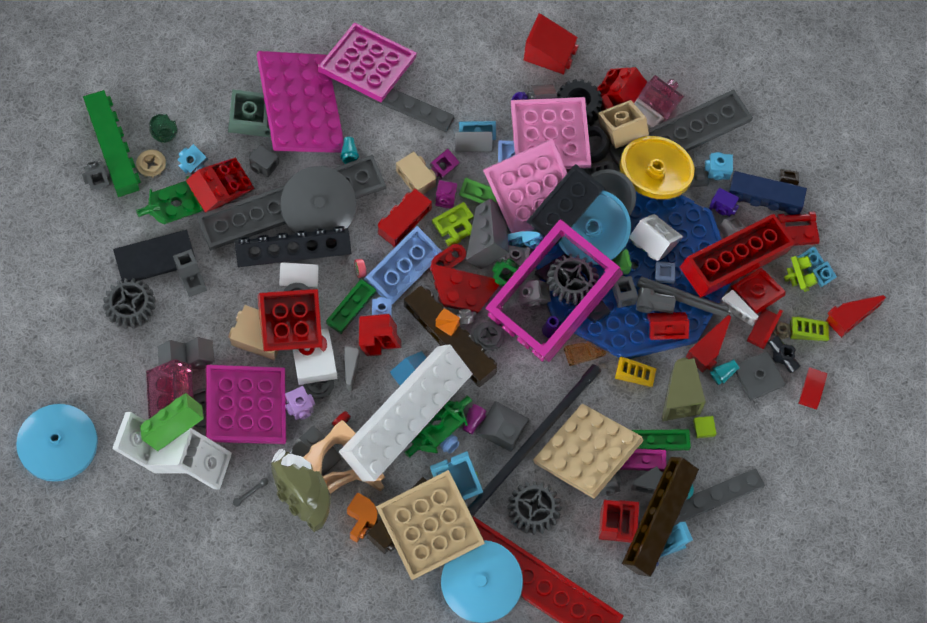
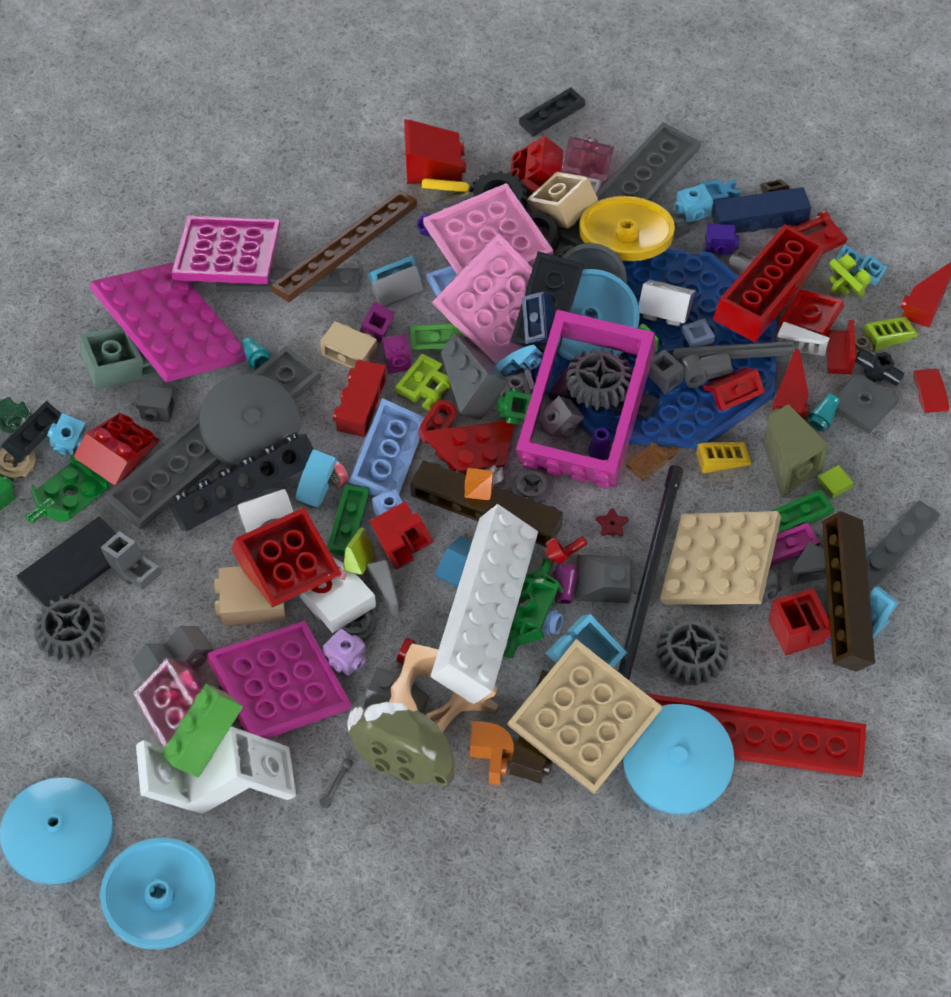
camera: 20 degrees left, 10 degrees down
(98, 517) = (158, 893): none -> medium azure dish
(170, 147) = (31, 432): none -> black plate
(341, 266) = (314, 479): none -> medium azure slope
(343, 335) = (358, 553): none -> lime slope
(450, 93) = (343, 246): none -> reddish brown plate
(478, 395) = (558, 553): none -> red plate
(530, 393) = (607, 528): none -> dark red plate
(546, 76) = (446, 185): none -> yellow tile
(552, 211) = (537, 317): none -> dark blue slope
(657, 46) = (552, 112): none -> black plate
(743, 163) = (721, 191): none -> dark azure plate

